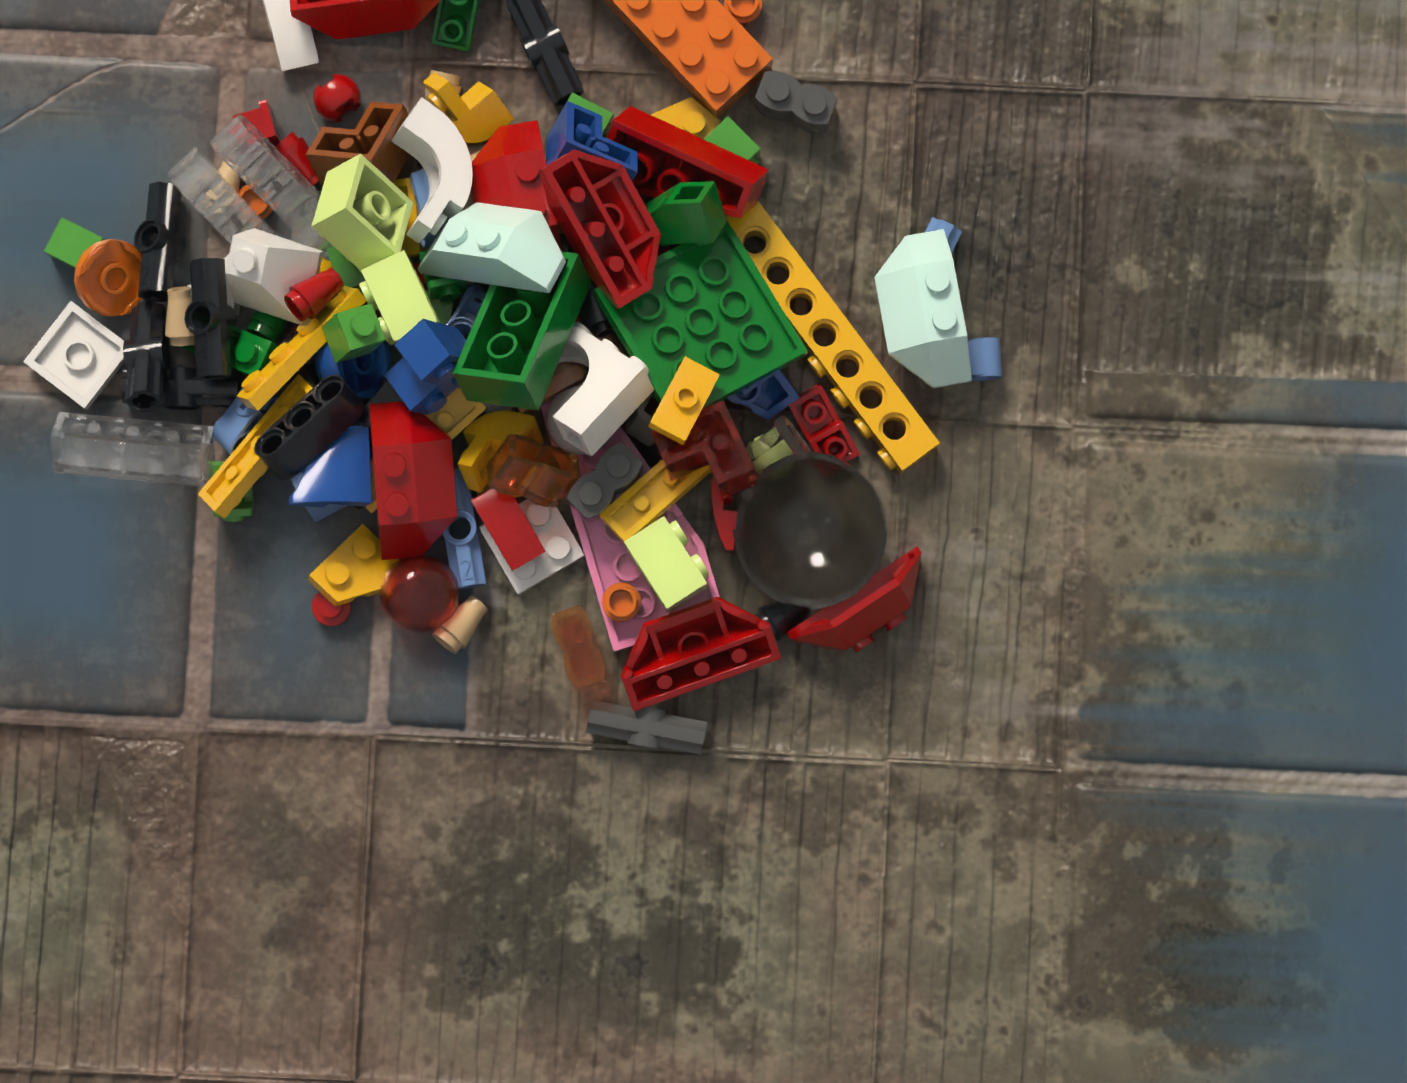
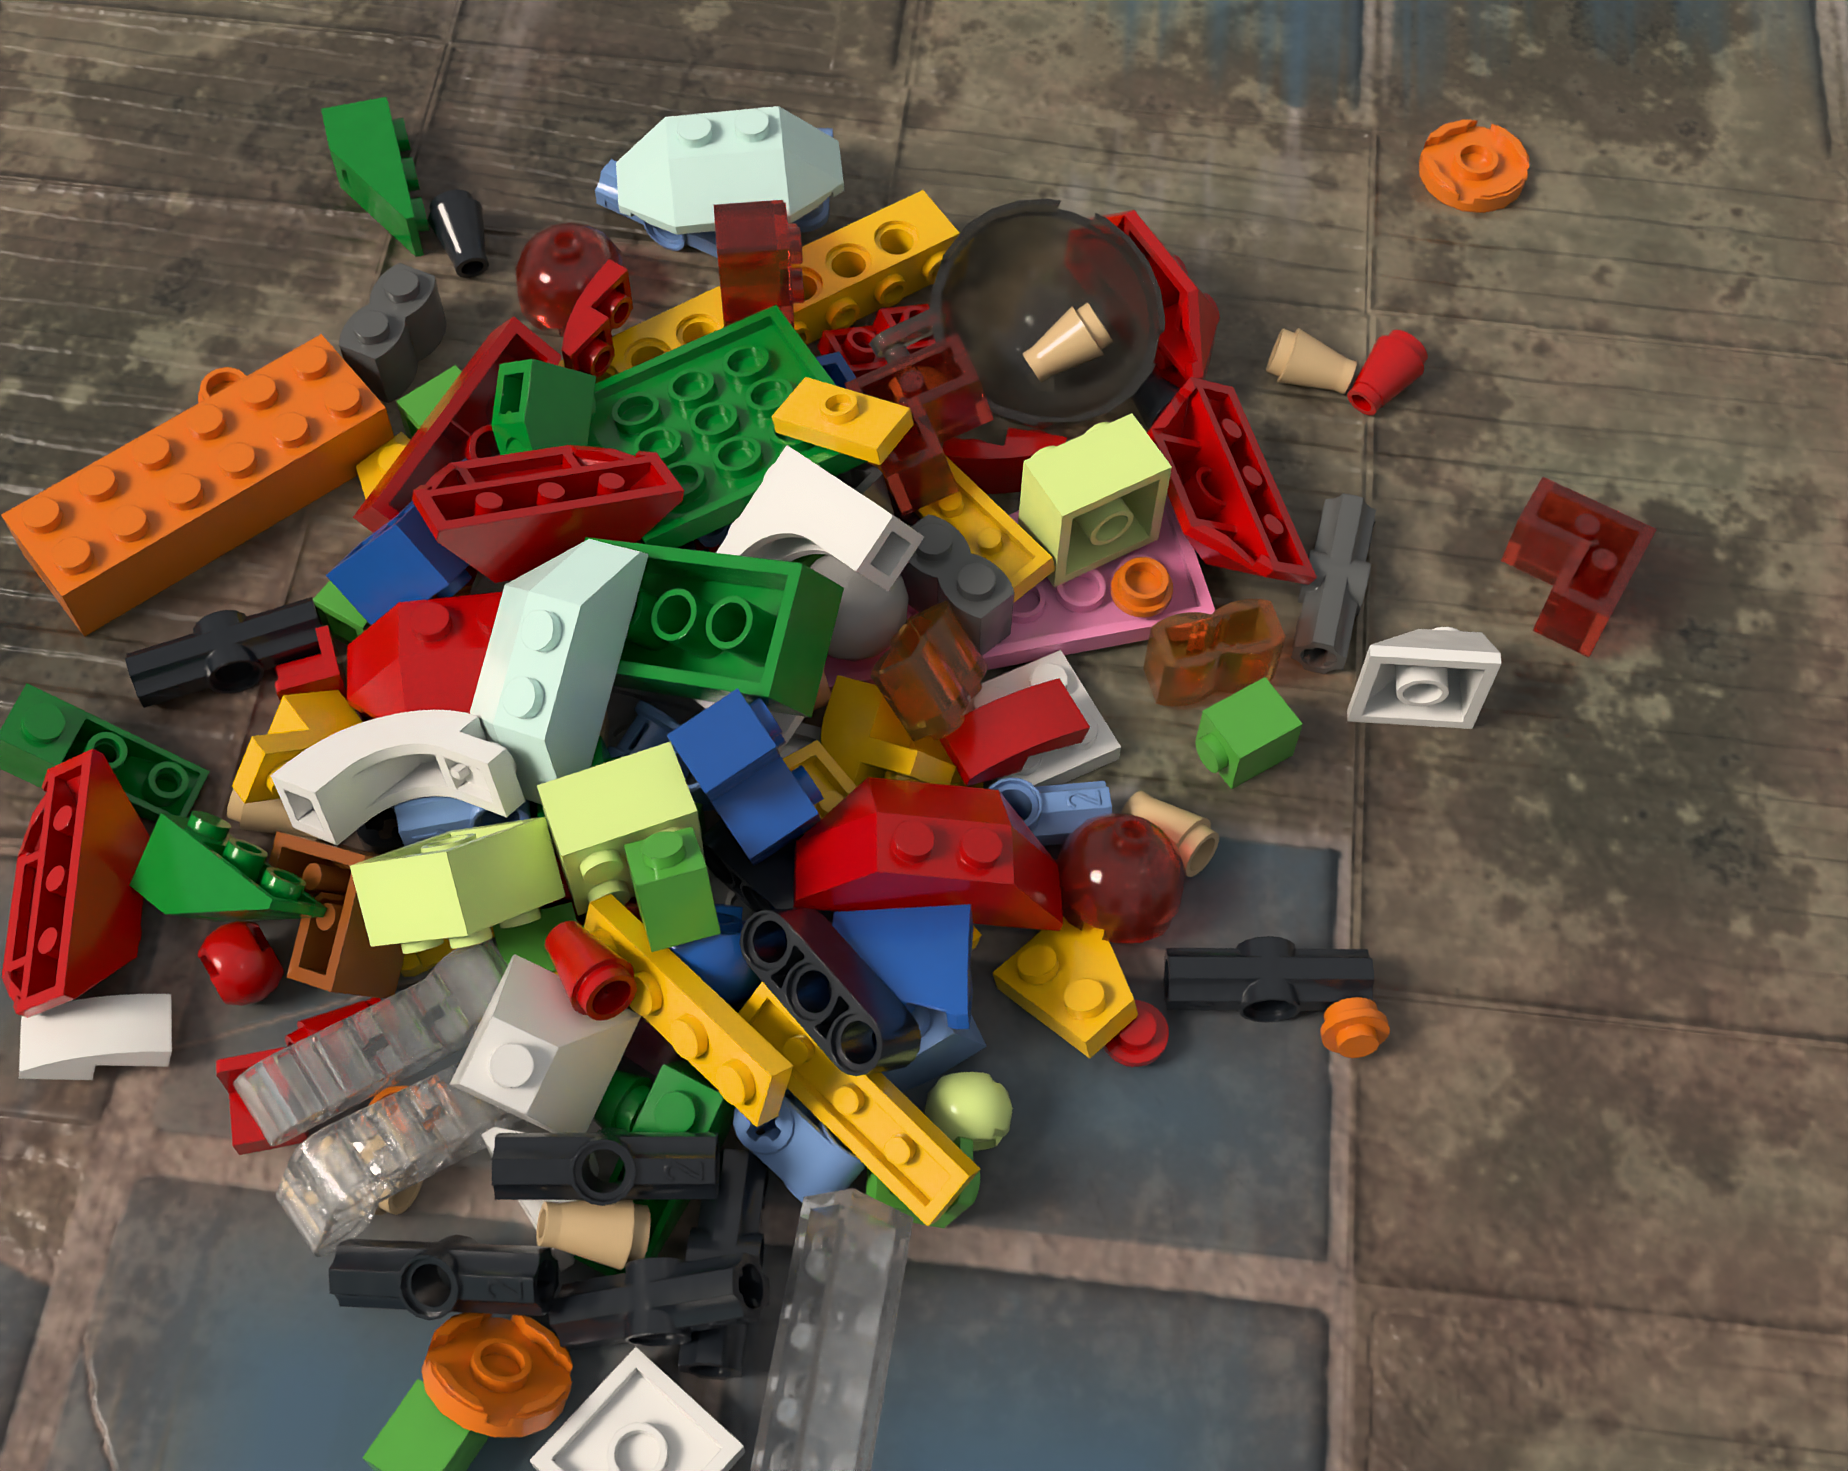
camera: 90 degrees left, 25 degrees down
(273, 514) = (970, 1108): none -> yellowish green piece
(339, 732) = (1354, 1027): none -> orange plate
(367, 682) = (1265, 978): none -> black piece
(372, 78) = (209, 875): none -> green slope
(527, 101) = (313, 673): none -> red panel
(528, 669) = (1247, 733): none -> bright green brick
(575, 782) = (1426, 679): none -> white slope
(664, 893) = (1583, 553): none -> clear red brick
(771, 231) = (599, 310): none -> red slope
(810, 550) = (1068, 343): none -> tan cone
(822, 767) = (1389, 369): none -> red cone
(826, 714) = (1309, 363): none -> tan cone
(844, 333) = (757, 258): none -> clear red brick
(857, 213) = (558, 268): none -> clear red cylinder
(893, 131) = (460, 229): none -> black cone
(950, 58) = (370, 167): none -> green slope
(1025, 839) = (1473, 166): none -> orange tile

